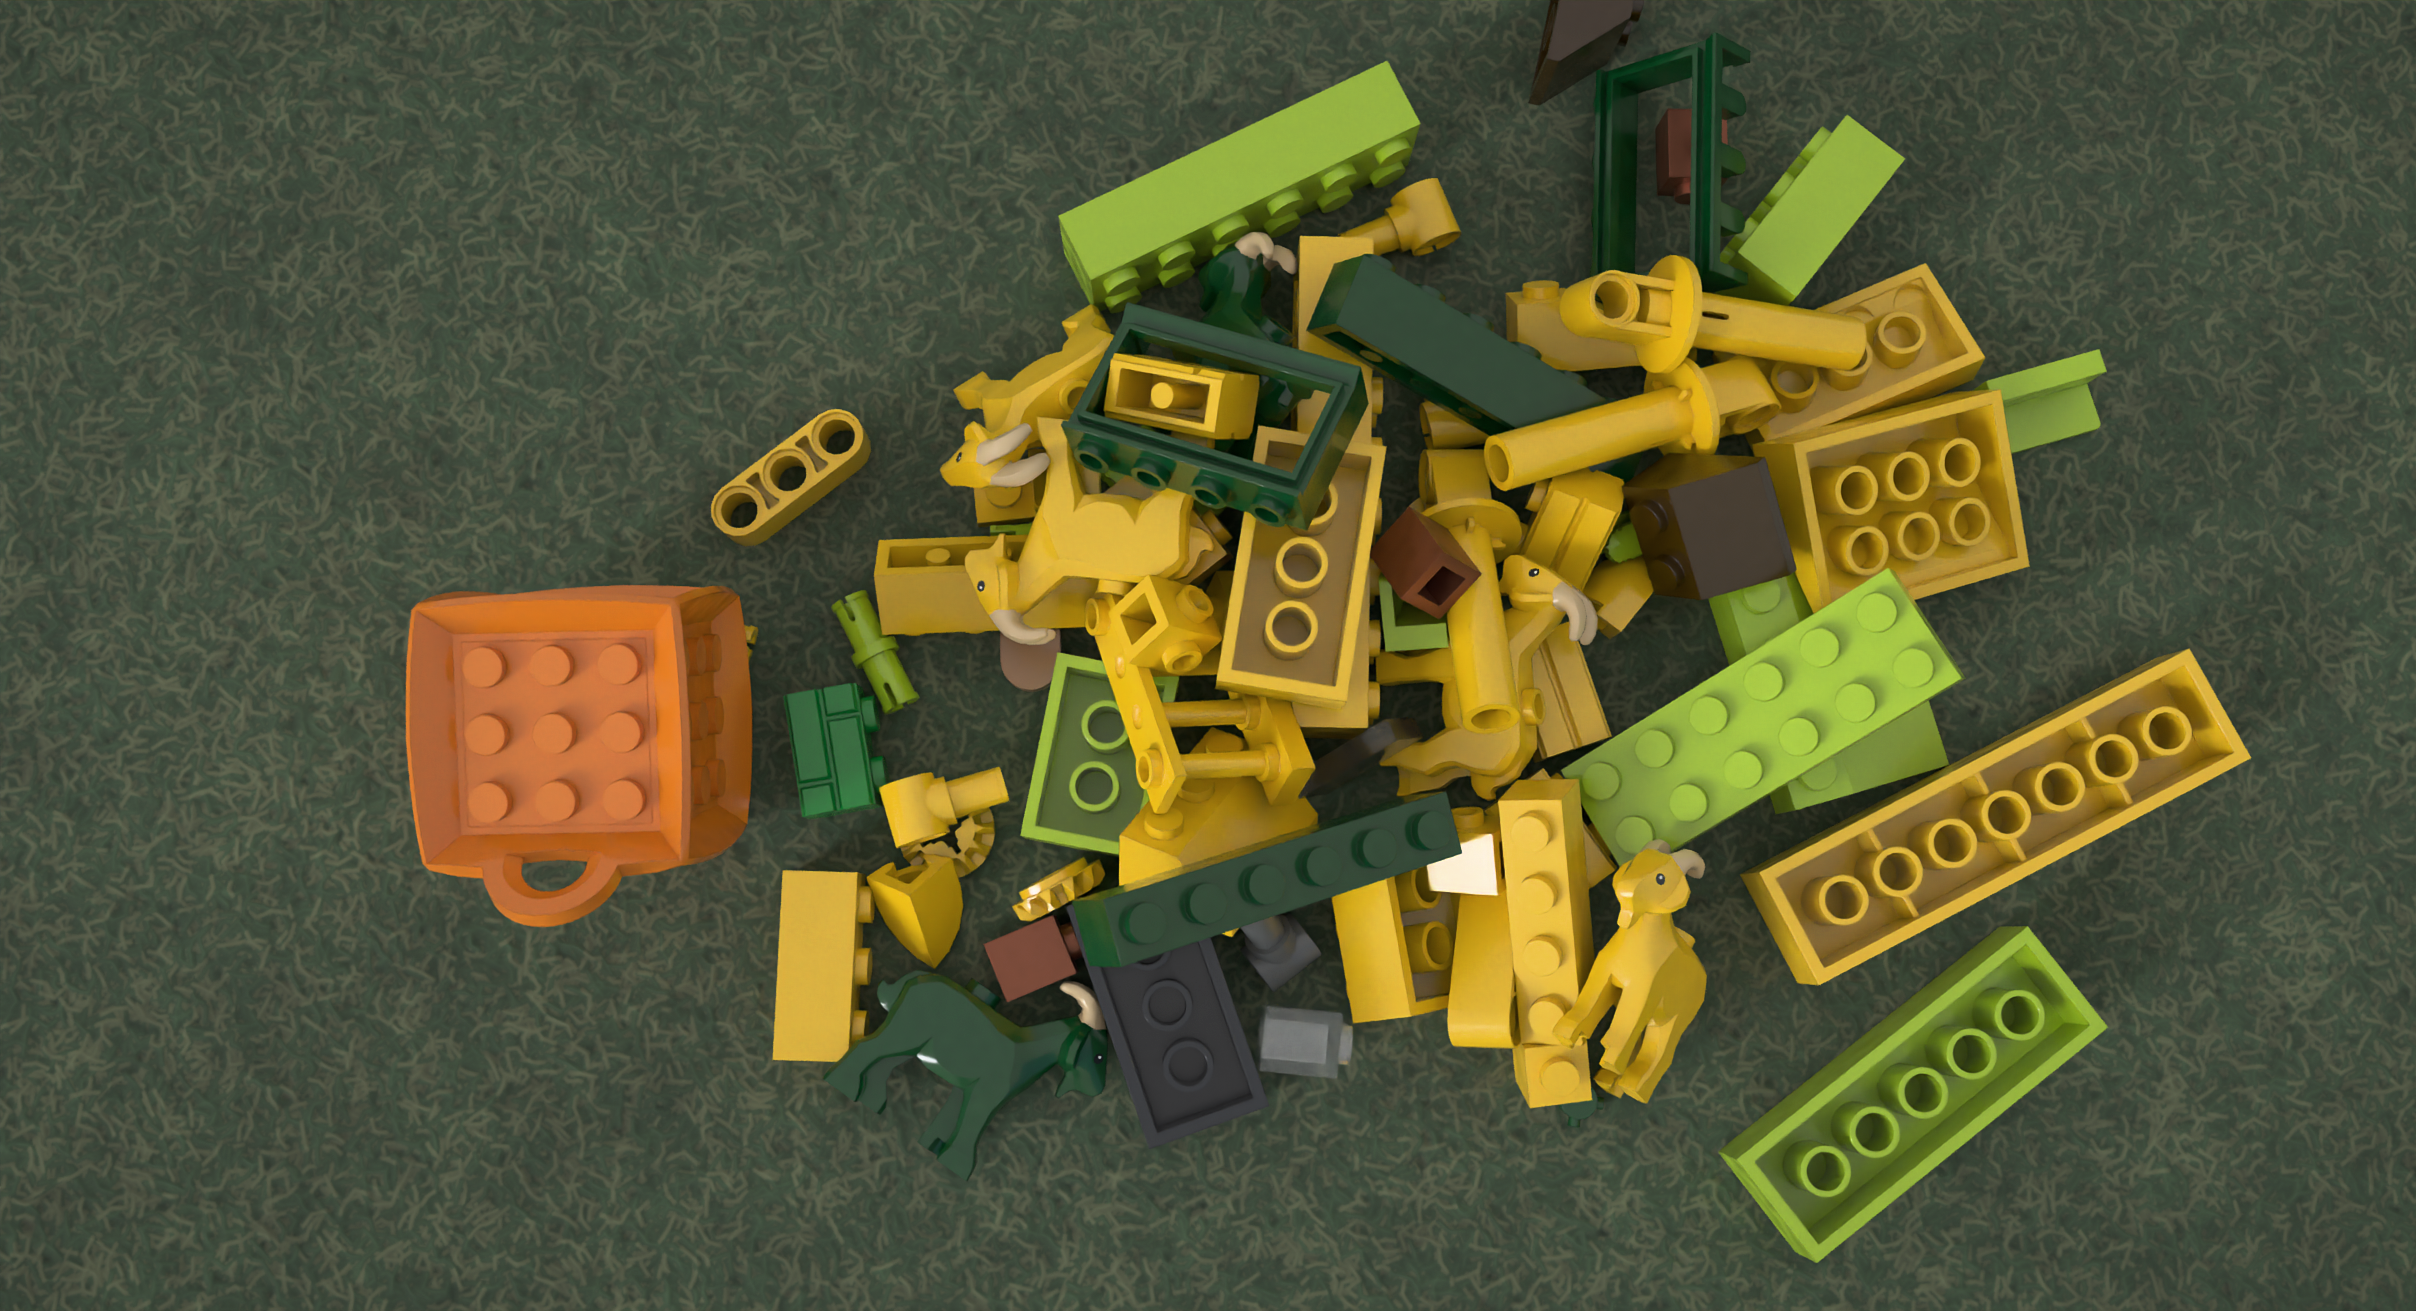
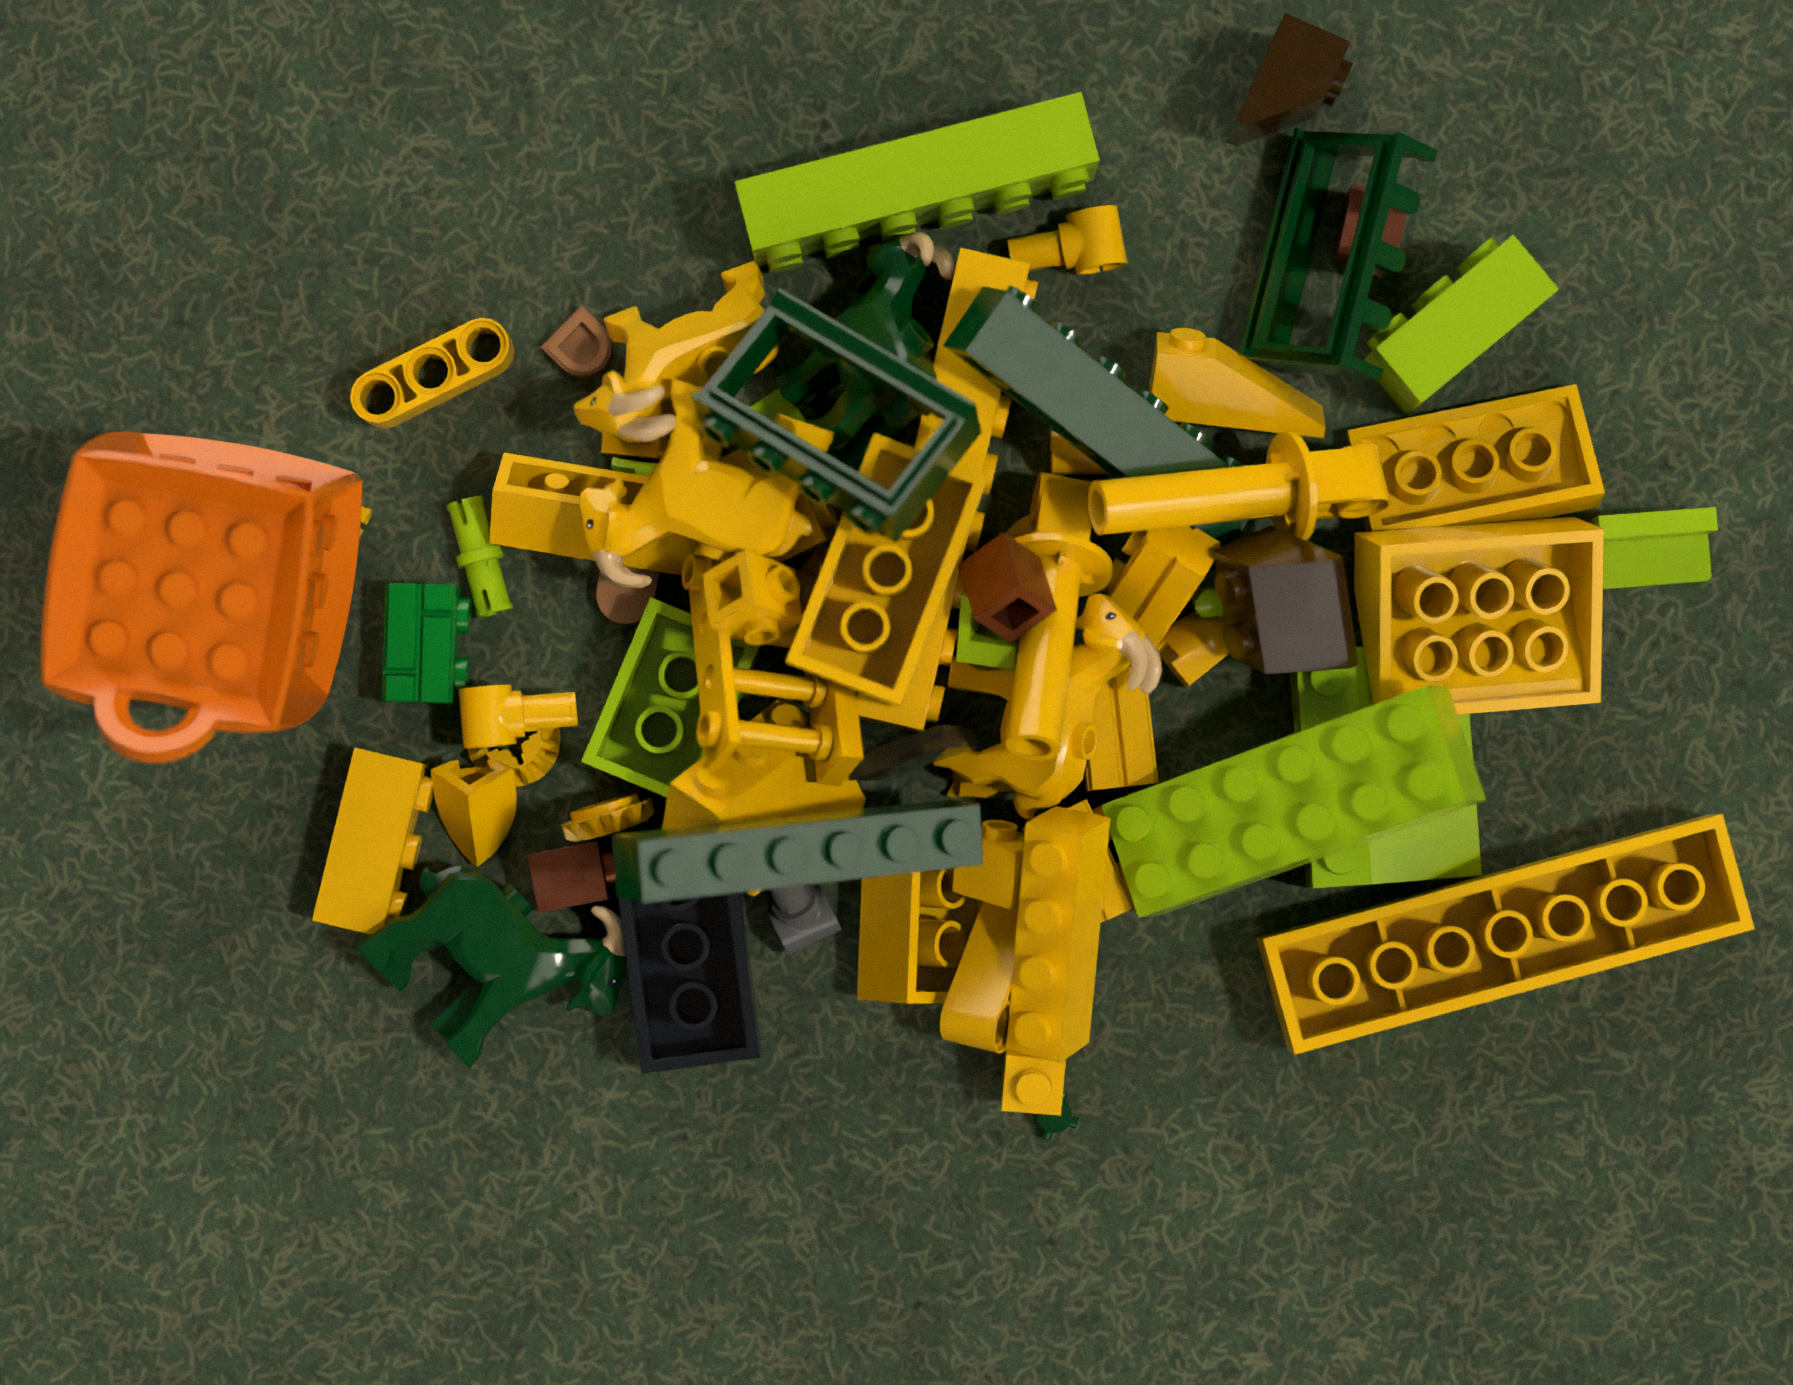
camera: 15 degrees right, 5 degrees up
(935, 423) = (580, 345): none -> medium nougat tile
(1181, 396) = (810, 389): yellow brick -> none
(1302, 1040) = (803, 1004): clear brick -> none
(1643, 973) = (1134, 1006): yellow animal -> none
(1671, 314) = (1291, 400): yellow piece -> none
(1912, 1090) = (1364, 1170): lime brick -> none

